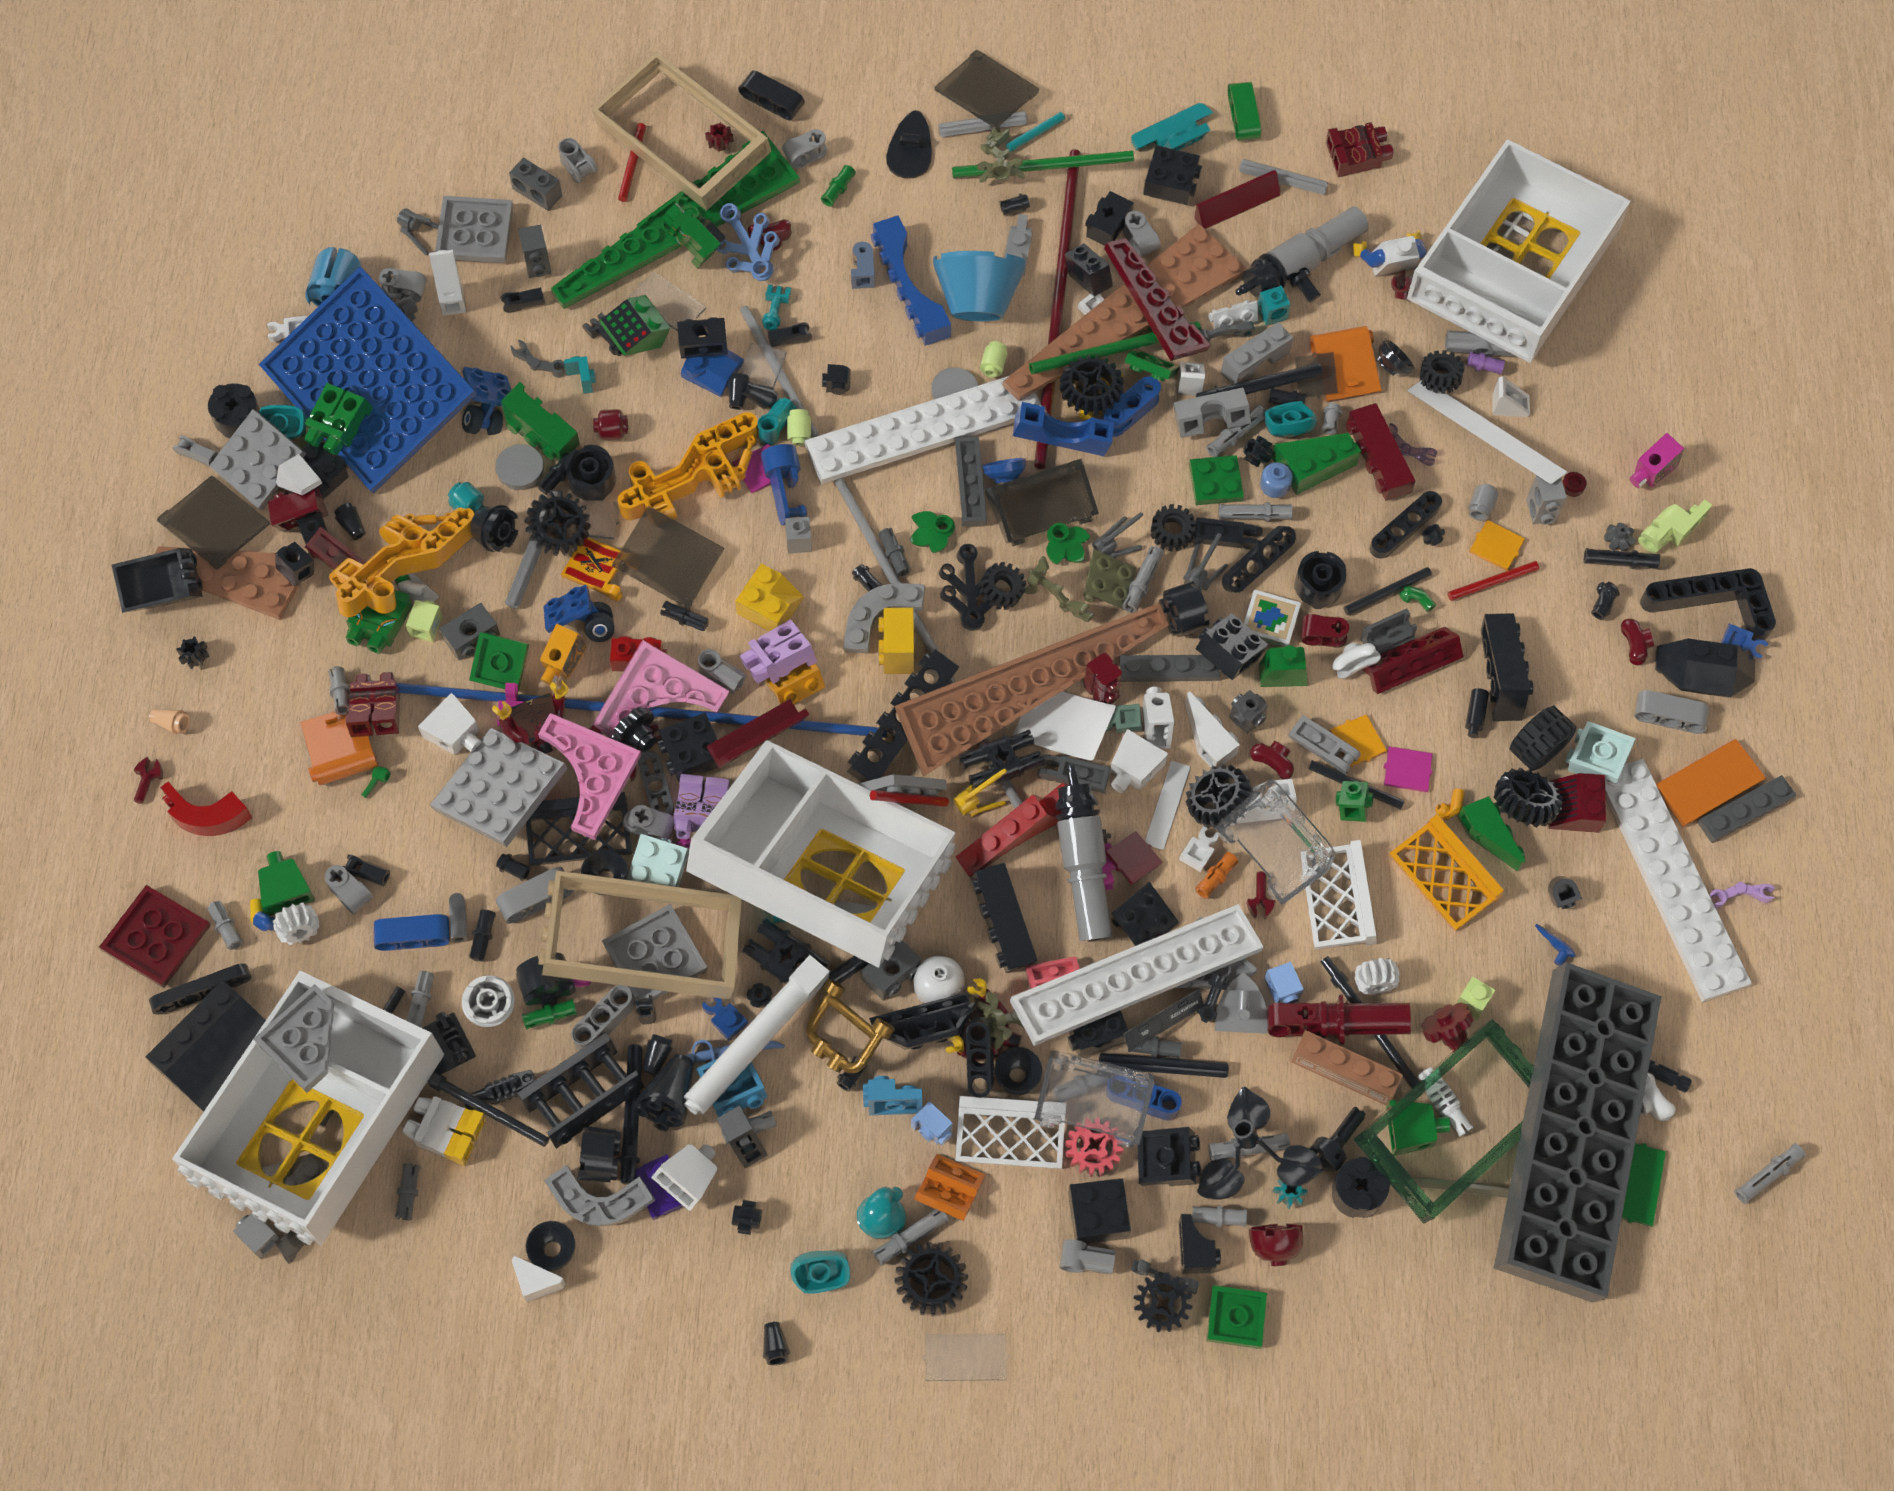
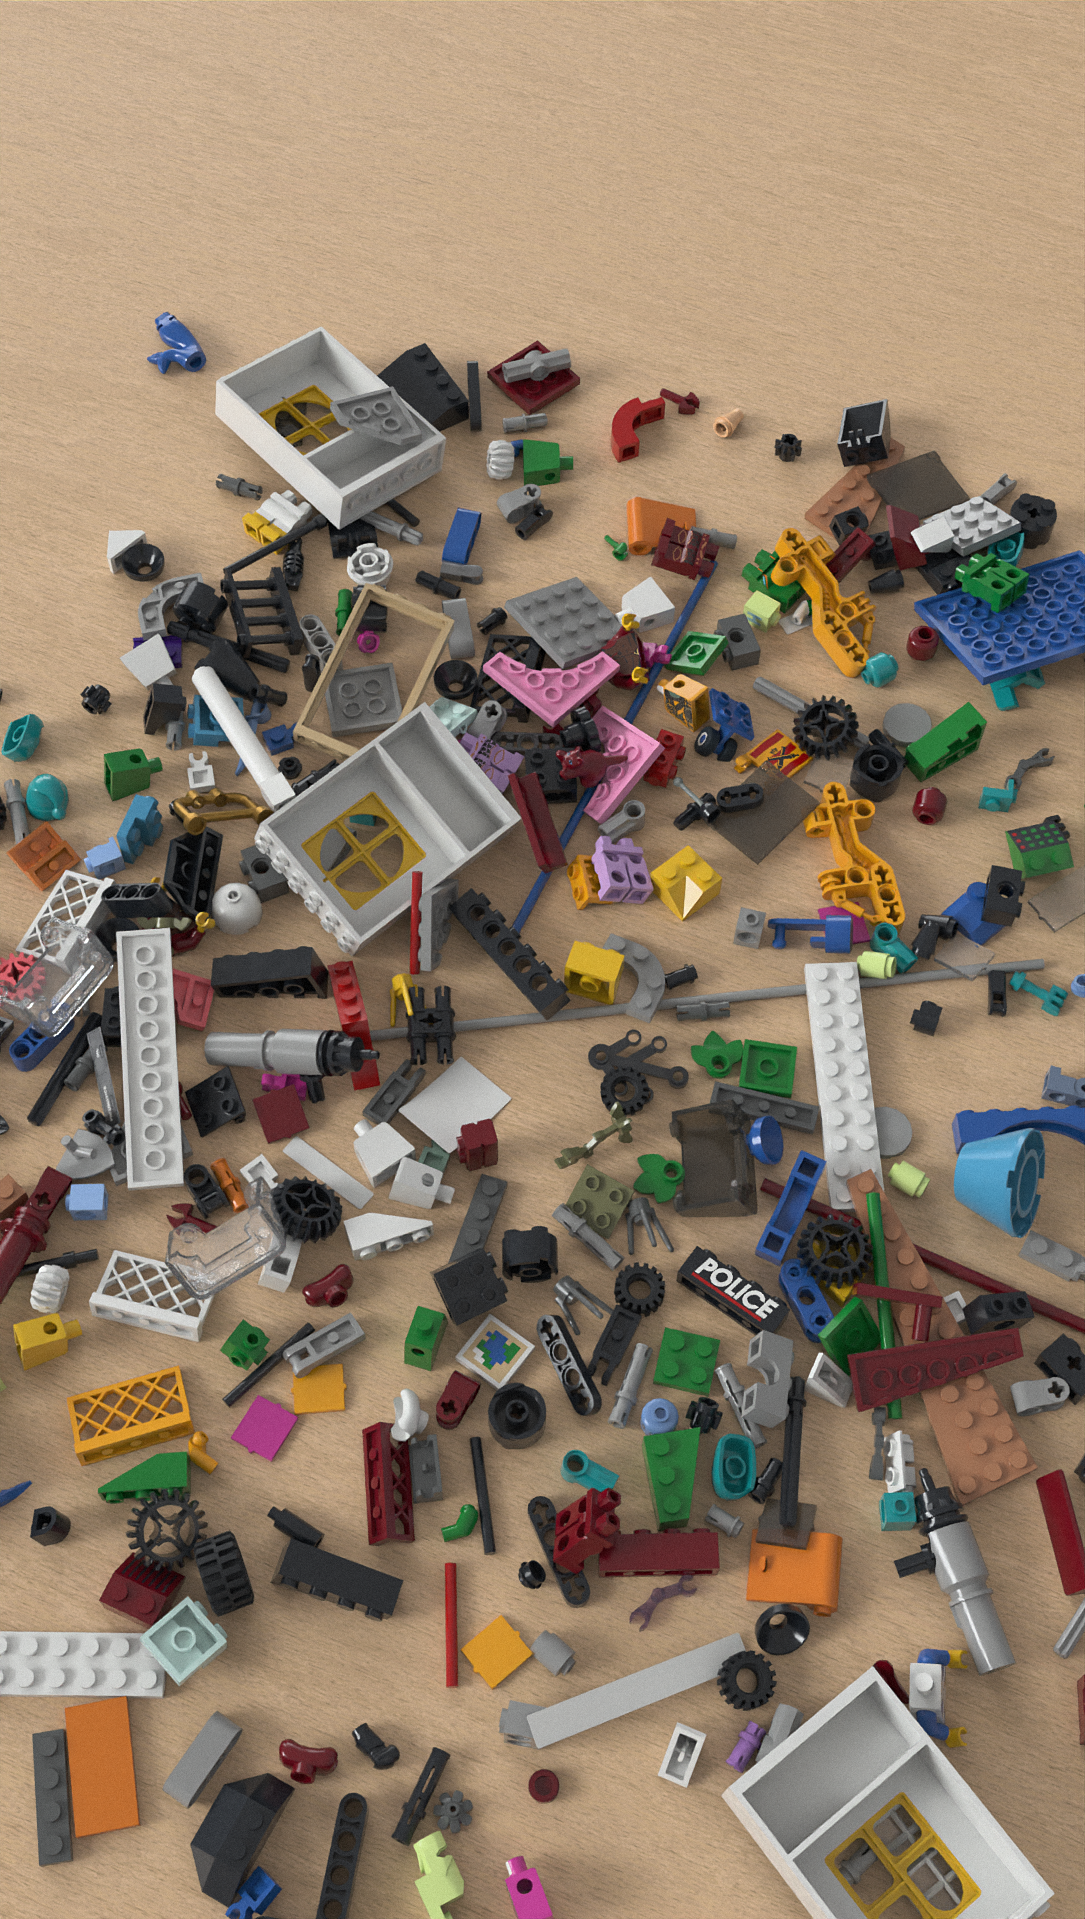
camera: 110 degrees right, 5 degrees down
(147, 928) = (536, 365): none -> light grey piece
(196, 1352) = (186, 347): none -> blue piece
(423, 469) = (922, 643): none -> dark red head
(491, 390) = (998, 707): blue plate -> none
(494, 527) = (839, 678): black cone -> none
(656, 1054) = (274, 677): black cone -> none
(657, 577) = (740, 797): none -> black beam
(677, 707) = (587, 765): none -> dark red animal
(685, 599) = (708, 811): none -> black hinge
(686, 1044) = (264, 694): none -> black pin
(802, 1074) = (201, 774): none -> white plate
(828, 1140) = (128, 772): none -> green torso
(932, 487) = (768, 1068): none -> green plate
(974, 708) = (492, 1015): nougat wing -> none
(1110, 319) = (923, 1305): none -> dark red piece
(1148, 459) = (731, 1293): none -> black brick
(1234, 889) = (206, 1194): none -> black piece
(1248, 711) = (391, 1280): flat silver brick -> none
(1269, 345) = (840, 1476): light grey arch -> none
(1339, 519) = (591, 1474): none -> teal piece
(1387, 486) = (588, 1528): none -> dark red hips
(1422, 962) = (43, 1339): none -> yellow torso

